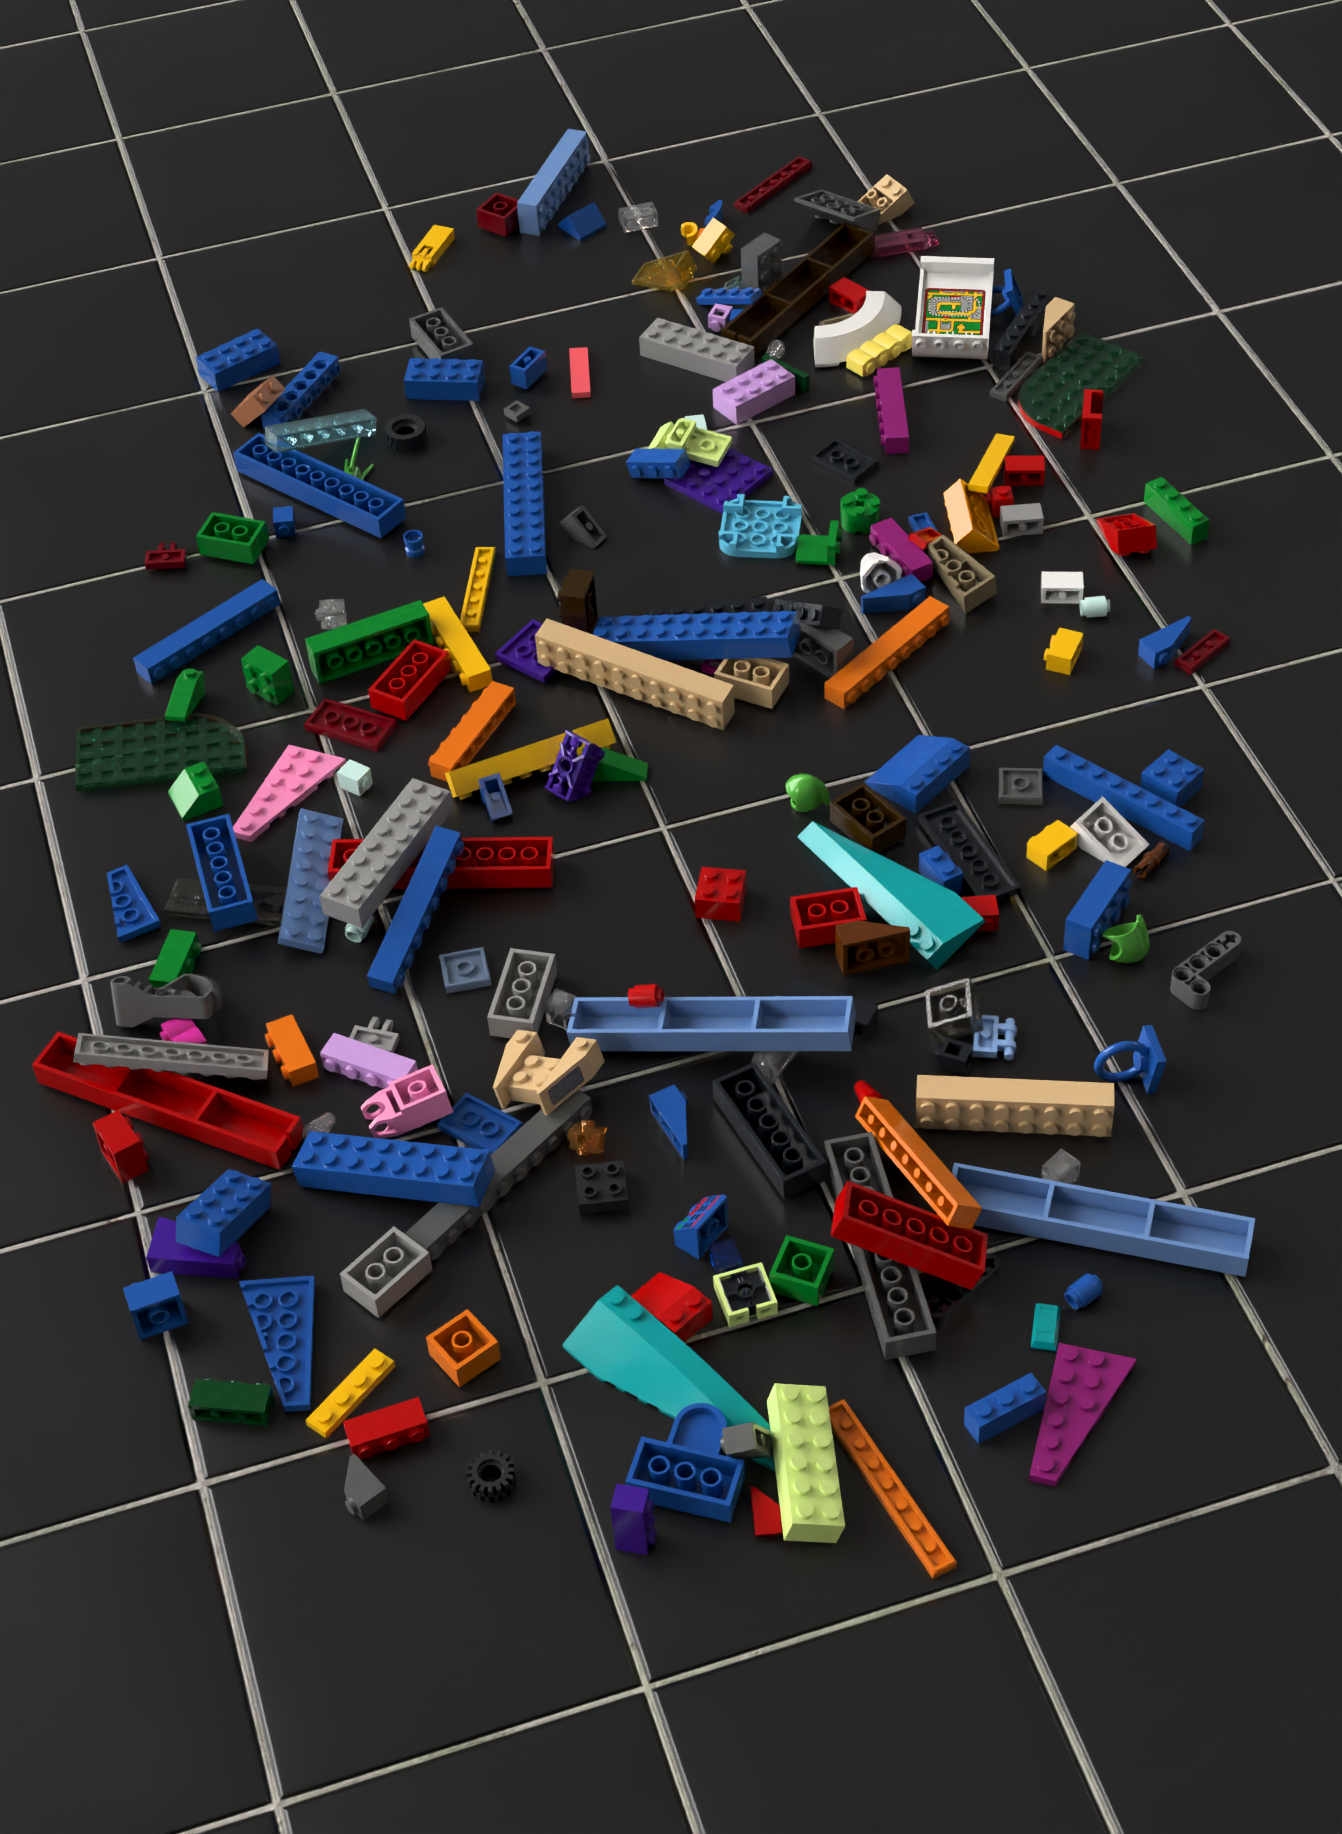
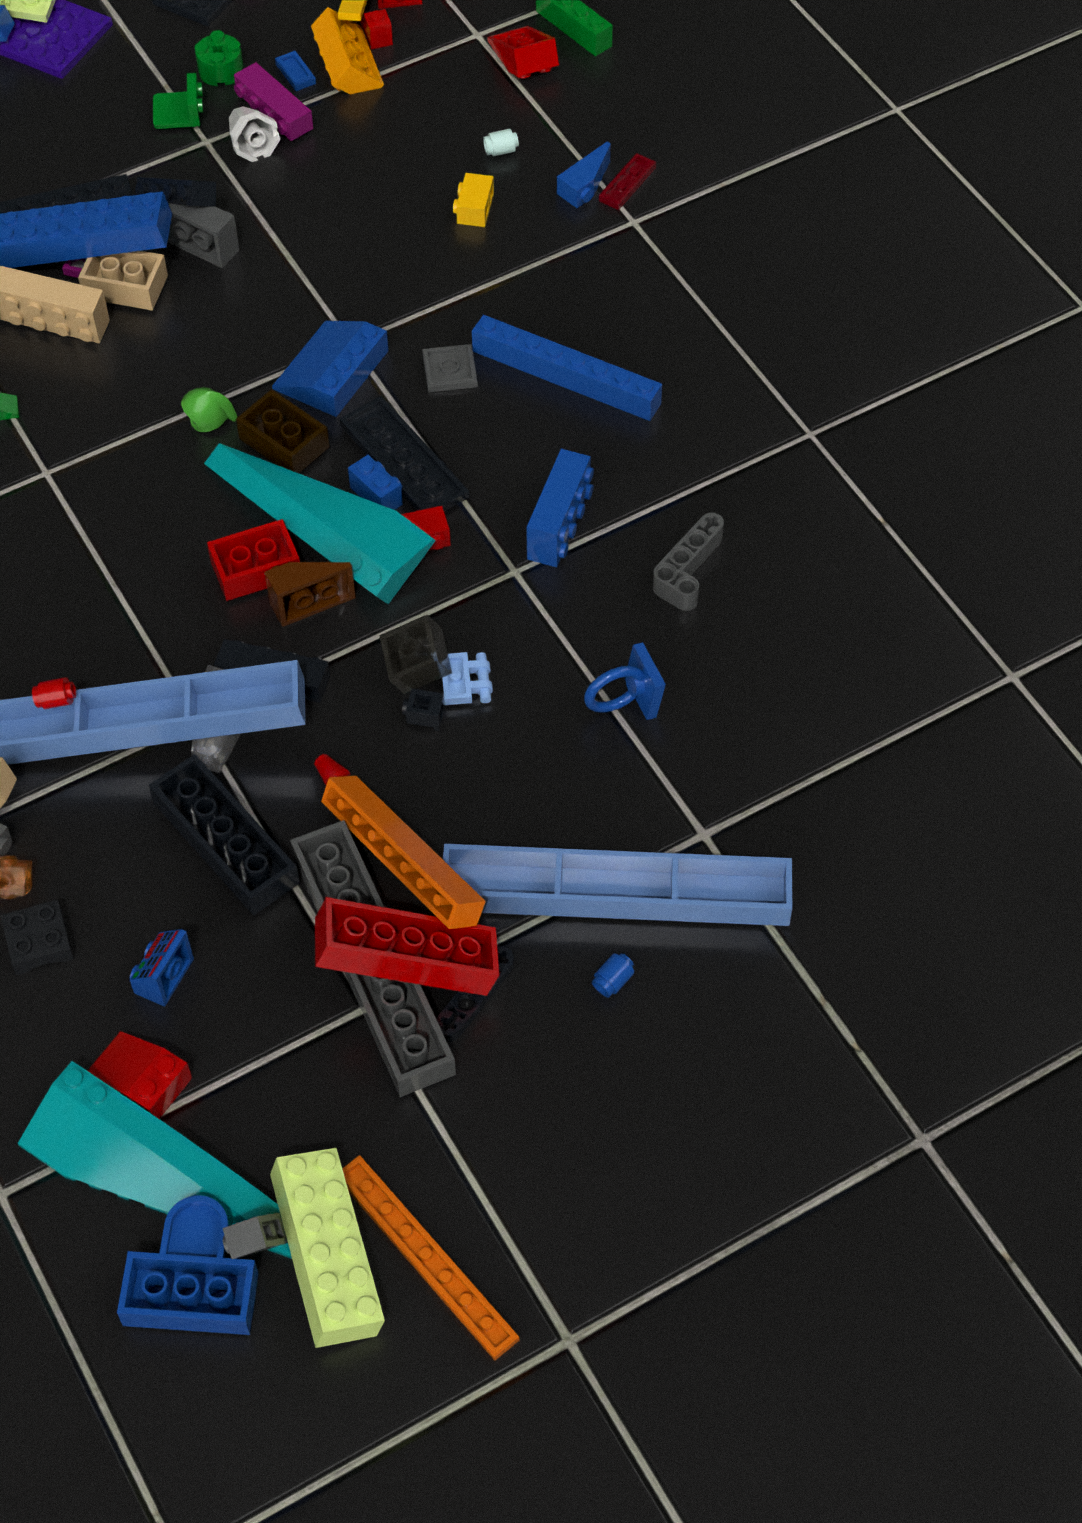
camera: 15 degrees left, 10 degrees up
(633, 1519) = (132, 1361): dark purple brick -> none
(670, 1112) = (106, 829): blue slope -> none
(720, 894) = (125, 547): red brick -> none
(725, 1256) = (197, 1004): clear blue brick -> none
(745, 1294) = (225, 1044): piece -> none
(760, 528) = (107, 91): medium azure tile -> none
(765, 1514) = (289, 1317): red slope -> none
(802, 1270) = (287, 1004): green brick -> none
(886, 652) = (274, 226): orange brick -> none
(896, 596) = (273, 157): blue slope -> none
(924, 537) = (299, 82): red tile -> none
(961, 574) = (346, 121): dark tan wedge -> none
(1004, 1408) = (545, 1135): blue brick -> none
(1014, 1105) = (501, 761): tan brick -> none
(1021, 519) = (403, 47): light grey brick -> none
(1045, 1327) = (576, 1025): teal tile -> none
(1051, 845) = (495, 435): yellow brick -> none
(1061, 1168) = (565, 830): clear brick -> none
(1062, 587) = (460, 123): white brick -> none
(1075, 1402) = (626, 1103): magenta wing -> none
(1108, 834) = (556, 415): white slope -> none
(1129, 941) = (599, 540): bright green piece -> none
(1151, 860) = (609, 438): reddish brown pin -> none
(1172, 778) = (618, 338): blue brick -> none

